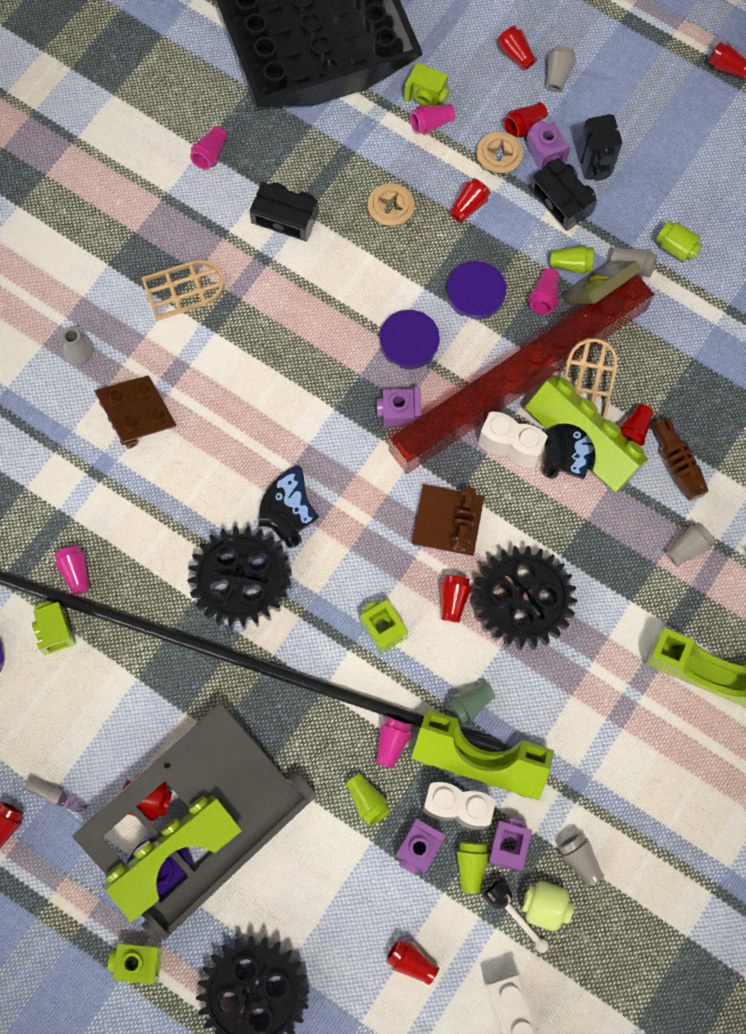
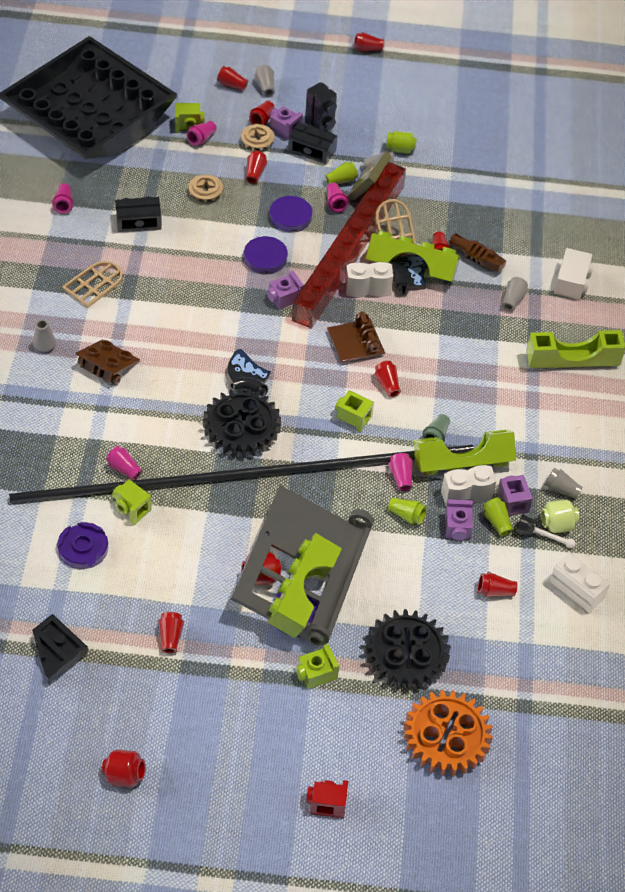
camera: 30 degrees left, 20 degrees down
(54, 795) = (195, 599): light grey piece -> none
(502, 614) = (432, 360): black gear -> none

